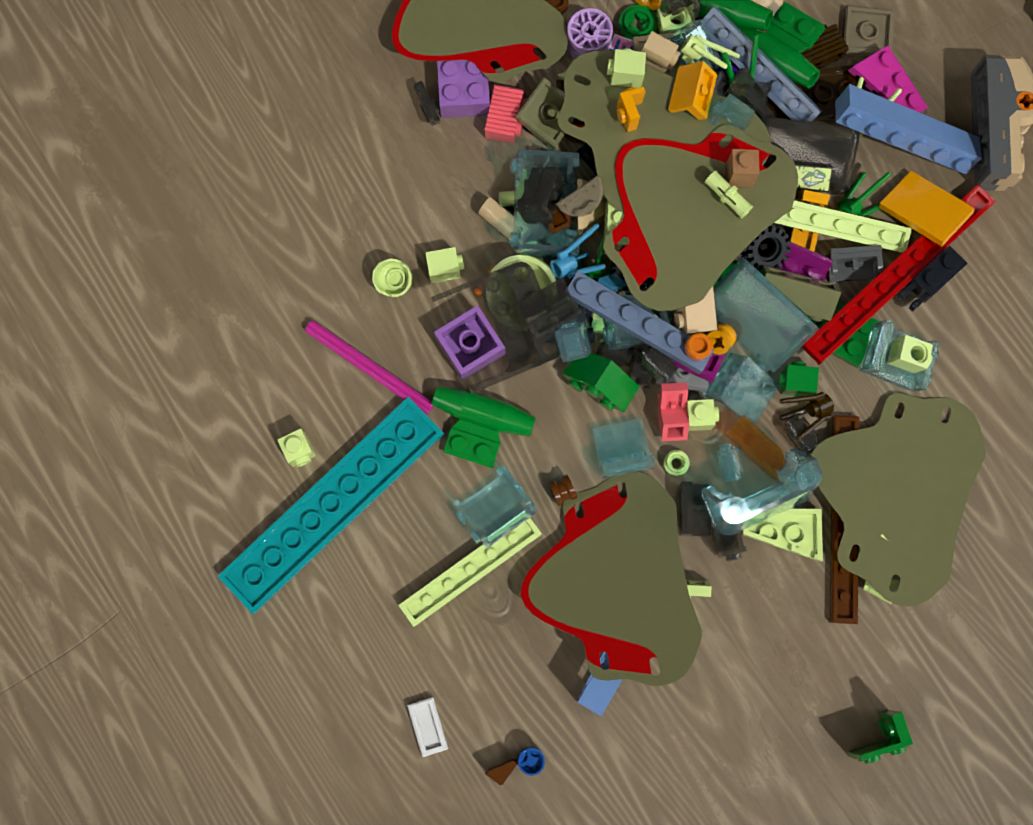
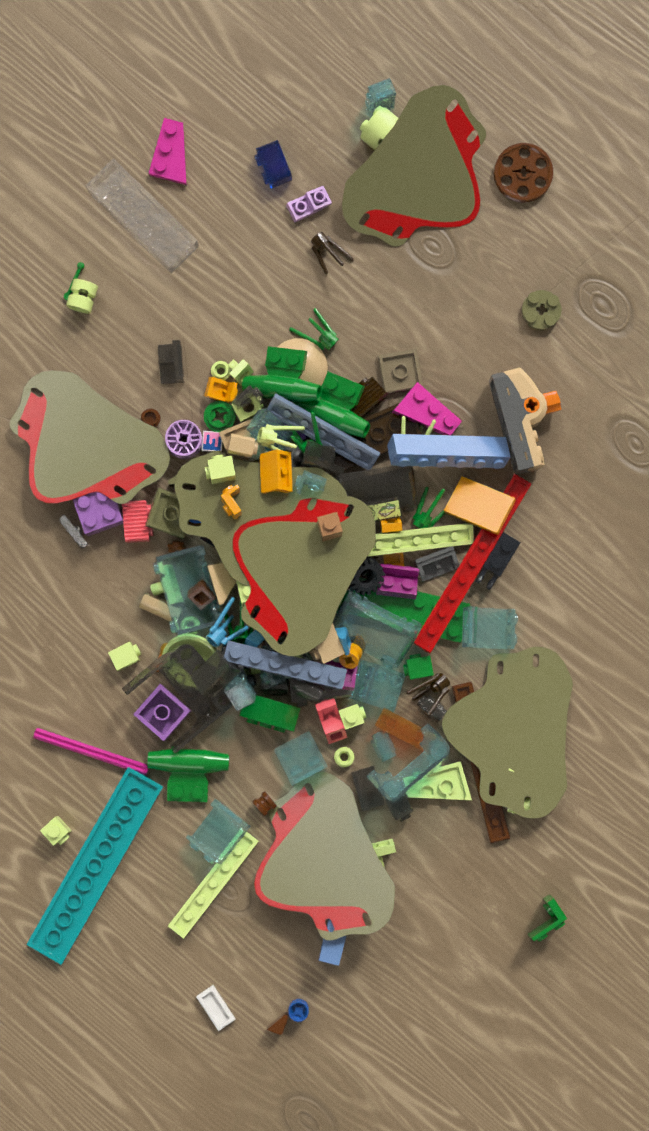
camera: 20 degrees left, 5 degrees up
(392, 277) = (88, 678): yellowish green hair -> none
(540, 195) = (183, 585): clear smoke brick -> none
(583, 200) = (216, 583): dark tan tile -> none
(698, 346) = (334, 672): orange tile -> none
(721, 314) = (344, 639): none -> dark azure slope
(728, 194) = (324, 549): yellowish green pin -> none
(809, 294) = (407, 603): olive slope -> none
(901, 356) = (488, 629): yellowish green brick -> none

